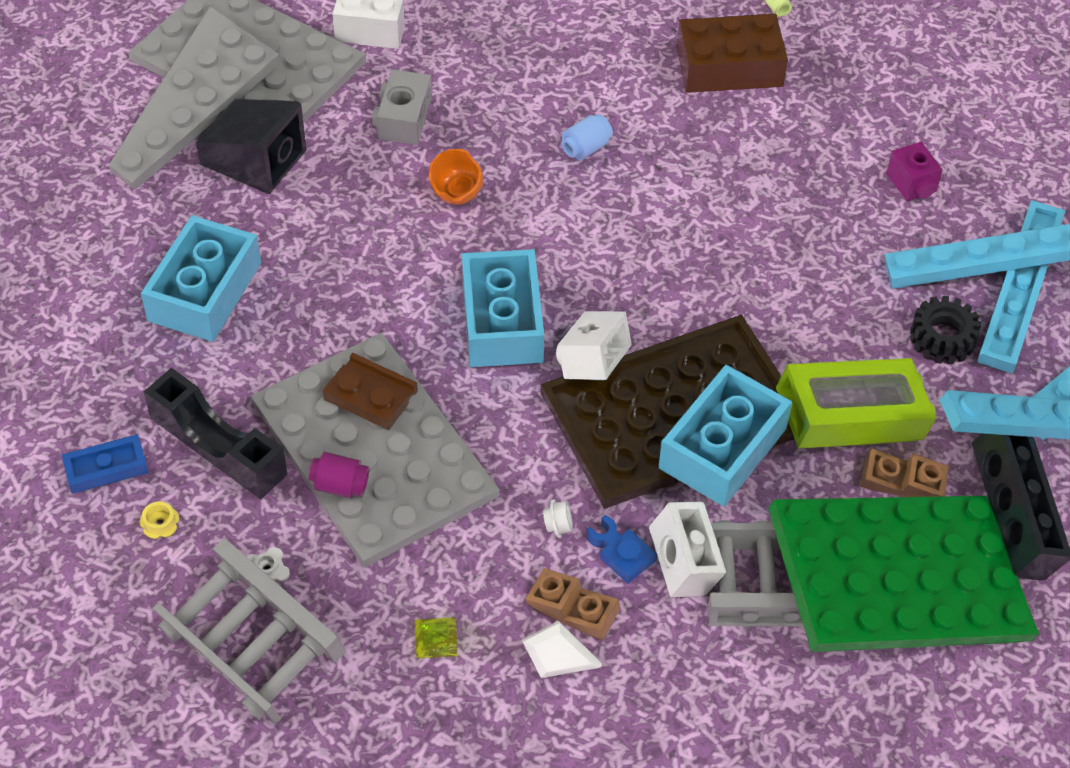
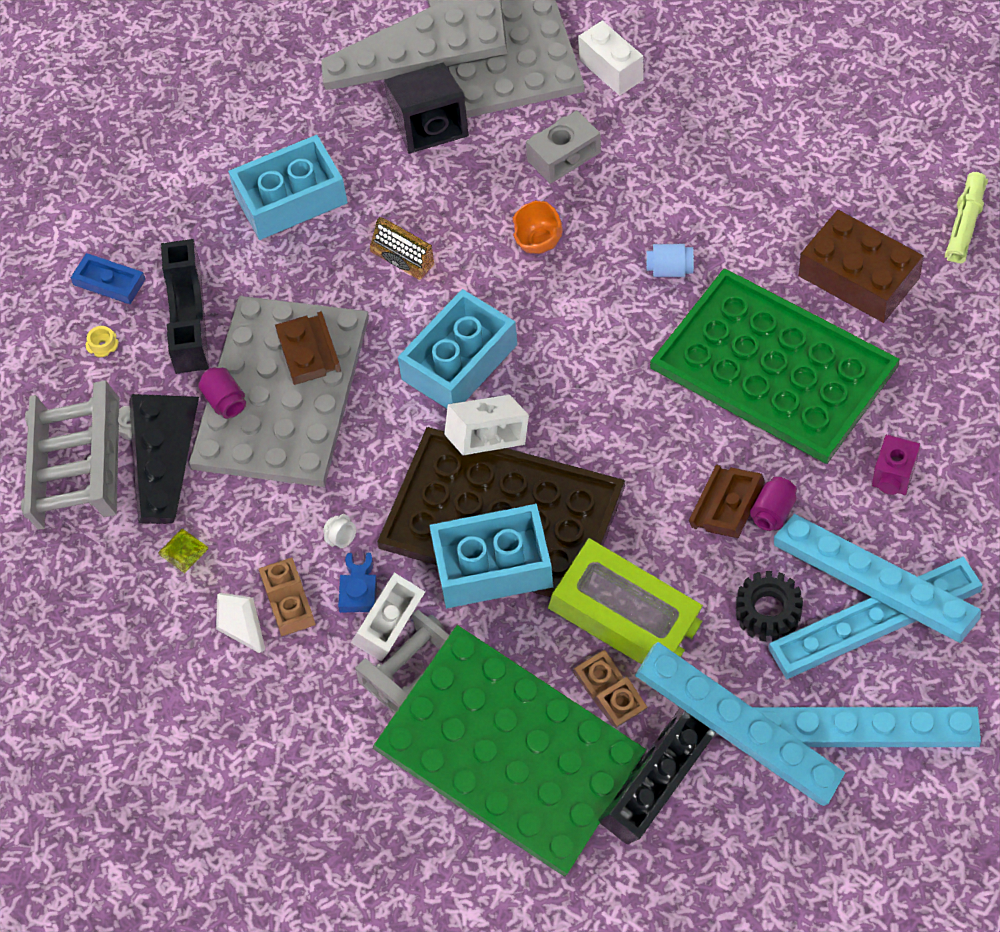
camera: 50 degrees right, 5 degrees up
(328, 570) = (160, 452): none -> black wing
(355, 265) = (401, 248): none -> slope
(747, 162) = (775, 365): none -> green plate
(829, 278) = (727, 501): none -> reddish brown plate
(864, 256) = (774, 504): none -> magenta brick

